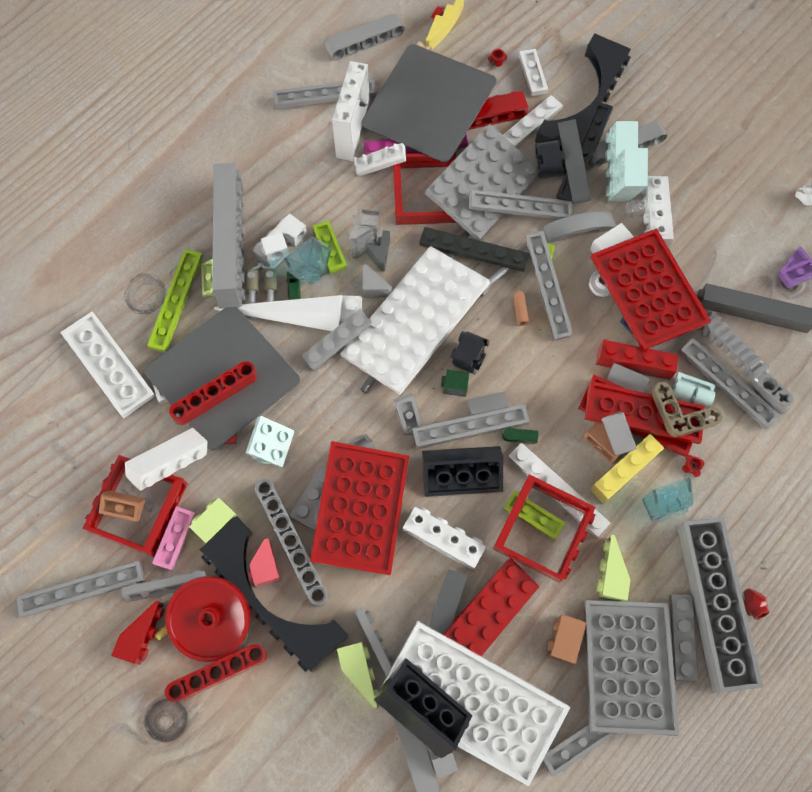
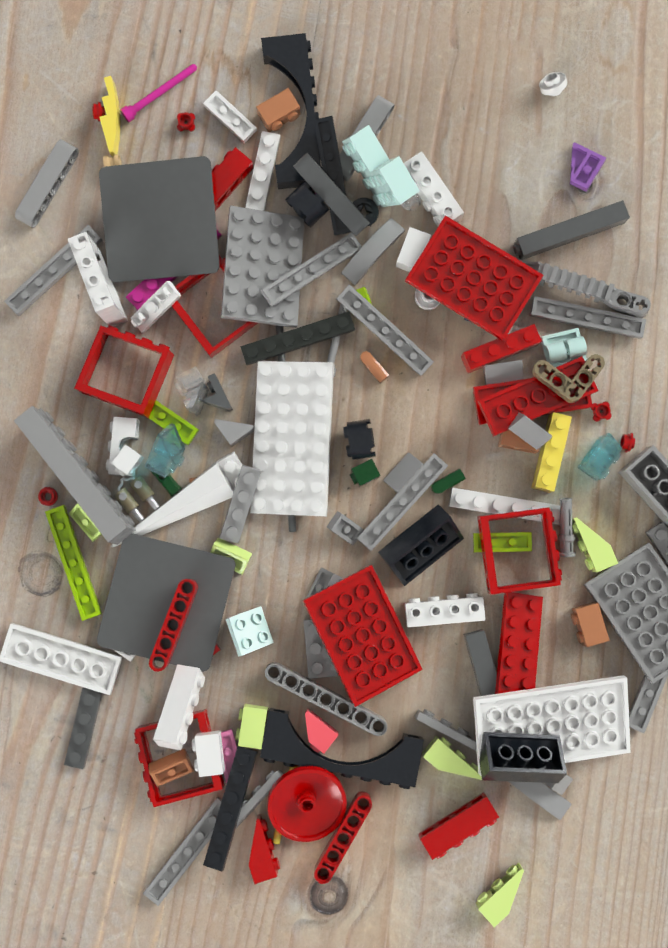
camera: 35 degrees left, 15 degrees up
(80, 430) = (83, 728): none -> dark grey plate
(141, 575) = (230, 808): none -> black plate
(160, 513) = (209, 753): none -> white brick
(195, 237) = (42, 496): none -> red plate
(306, 382) = (238, 554): none -> yellowish green slope
(323, 739) = (458, 826): none -> red brick
(334, 212) = (154, 385): none -> red window
(460, 28) = (130, 111): none -> dark pink piece
(573, 88) = (278, 110): none -> nougat brick
(594, 548) = (566, 534): none -> light grey pin
(599, 195) = (370, 207): none -> black gear
(701, 505) = (627, 442): none -> red plate

